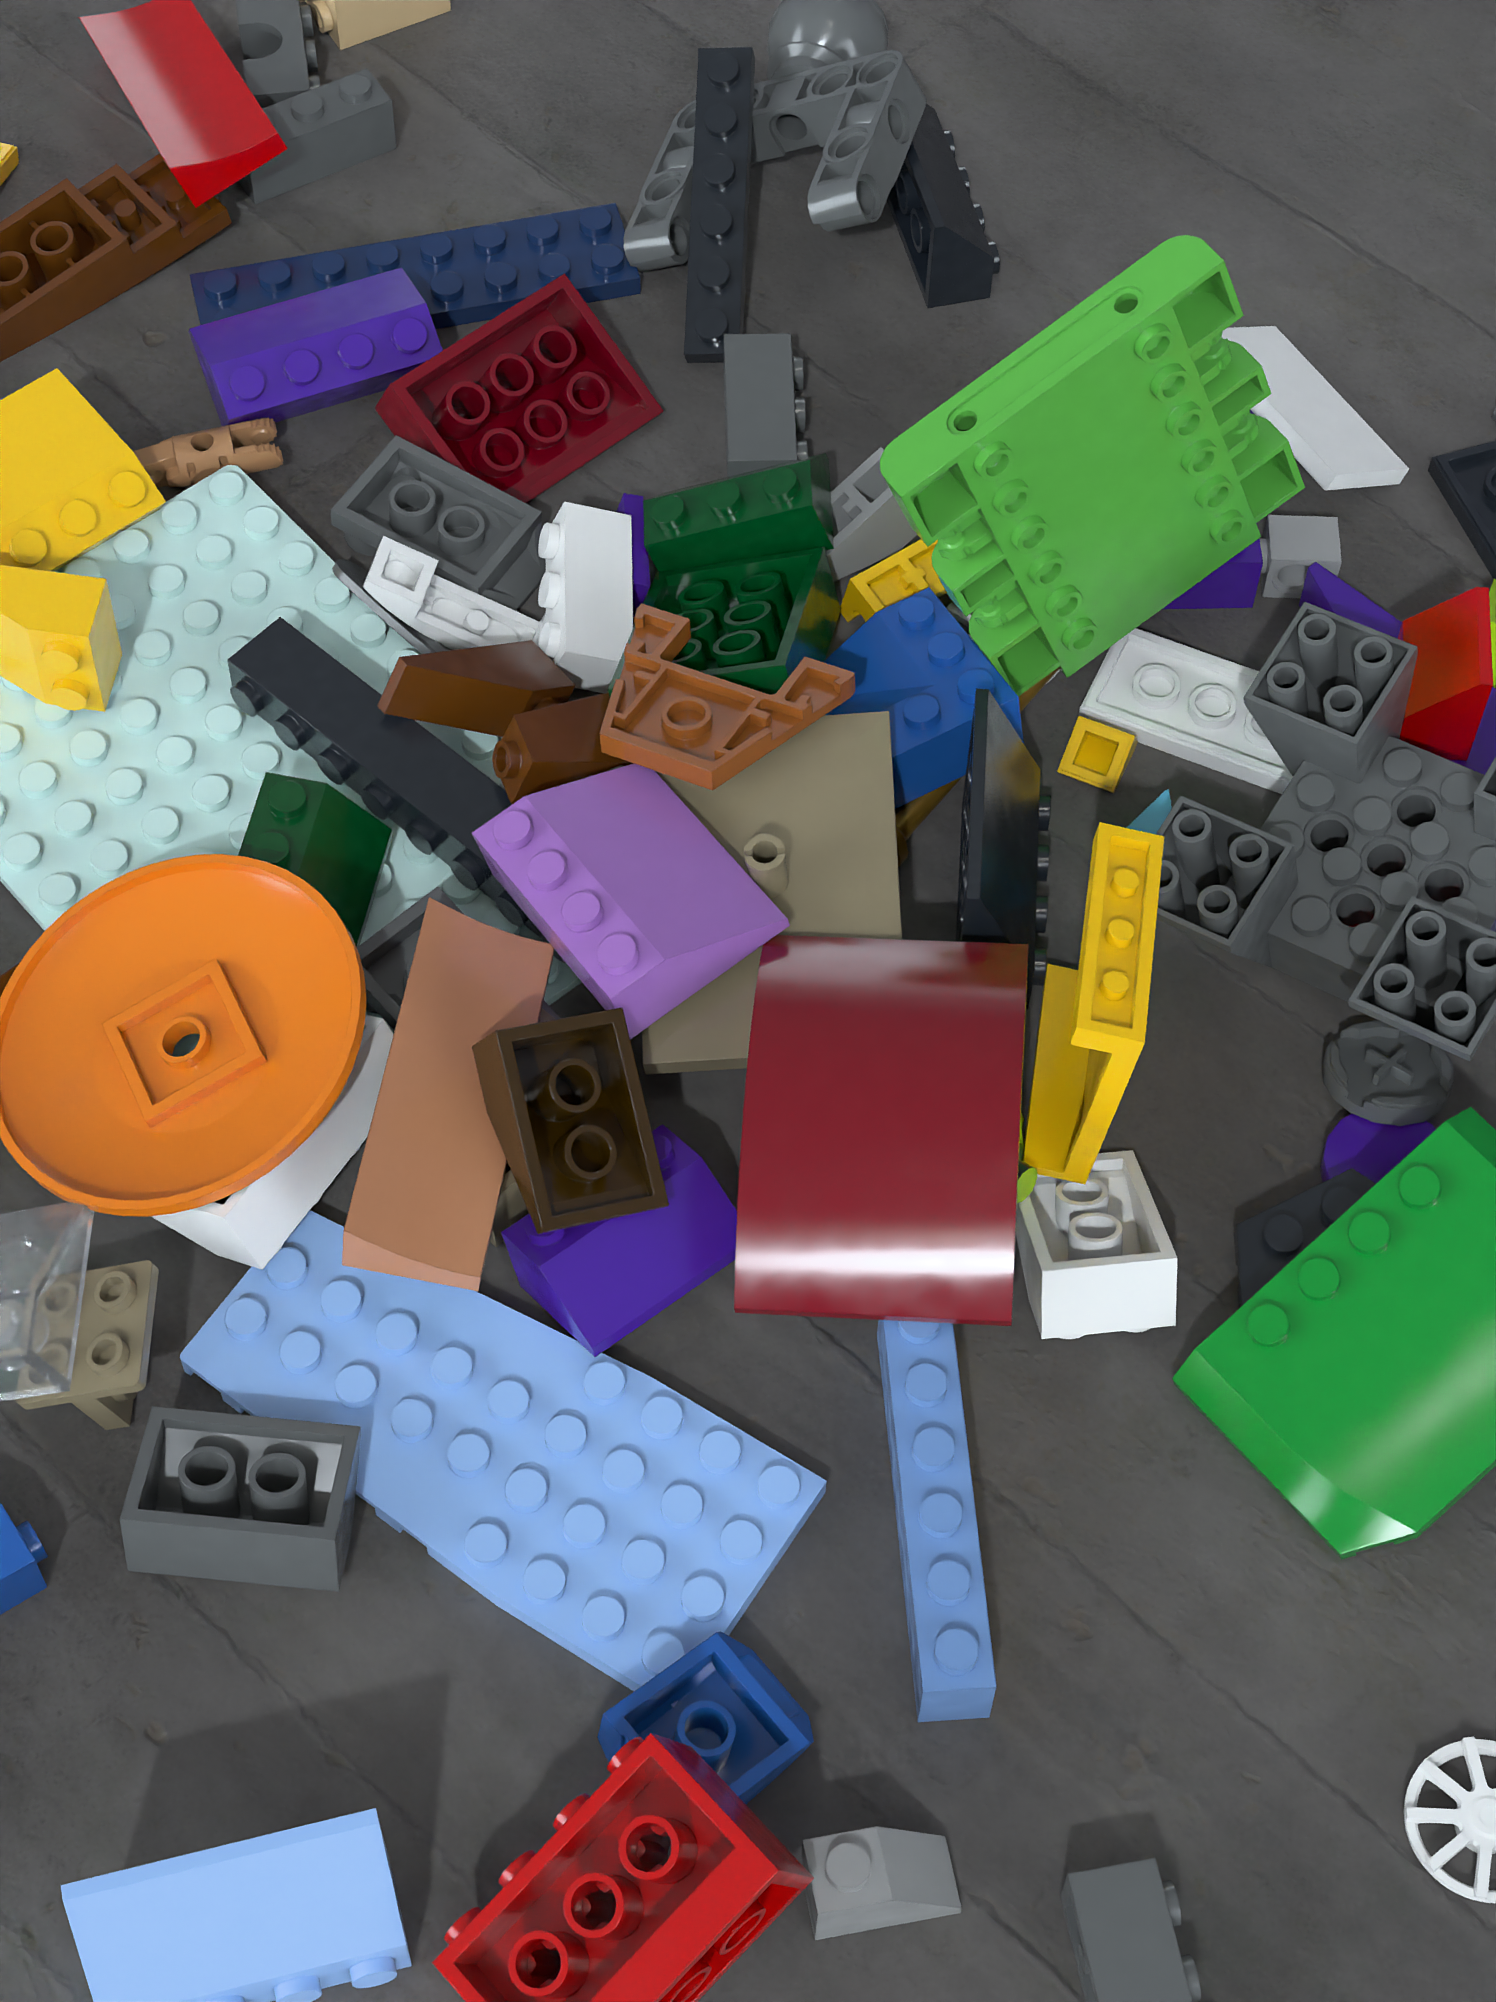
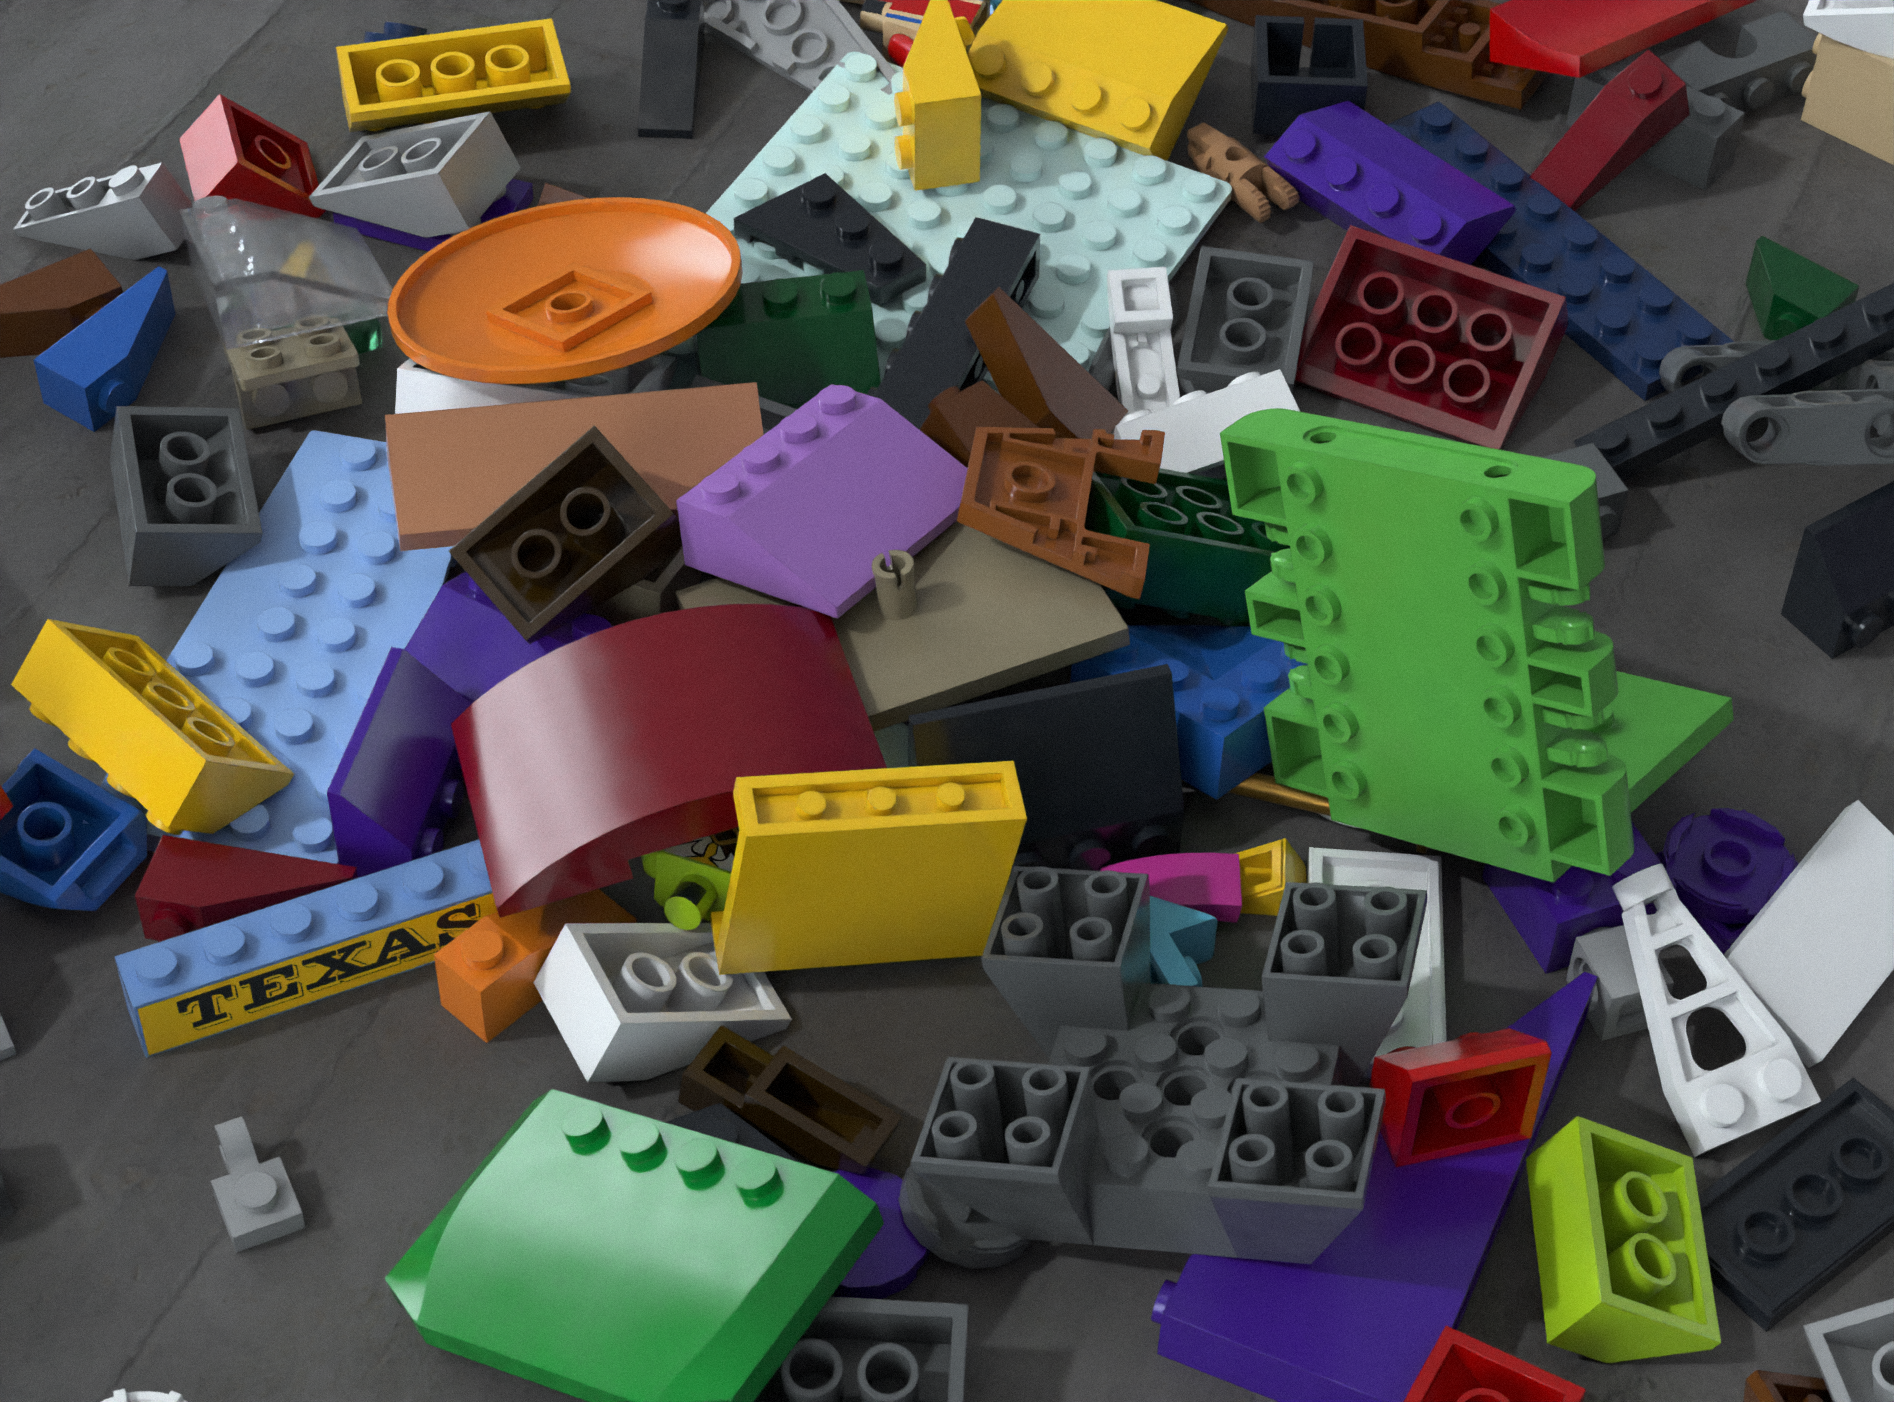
camera: 70 degrees right, 10 degrees down
(121, 347) = (1284, 89): none -> black piece
(139, 797) = (835, 234): none -> black wing
(345, 160) = (1614, 130): none -> dark red slope
(588, 142) = (1792, 289): none -> dark green slope
(609, 1598) = (147, 728): none -> yellow slope
(752, 1380) = (398, 770): none -> dark purple slope
(826, 1597) = (207, 883): none -> dark red slope
(1019, 1366) = (492, 965): none -> orange slope
(1102, 794) = (1192, 880): none -> dark pink slope
(1205, 1644) = (254, 1196): none -> light grey plate
(1247, 1175) = (789, 1102): none -> dark brown slope
(1426, 511) = (1737, 1097): none -> white plate

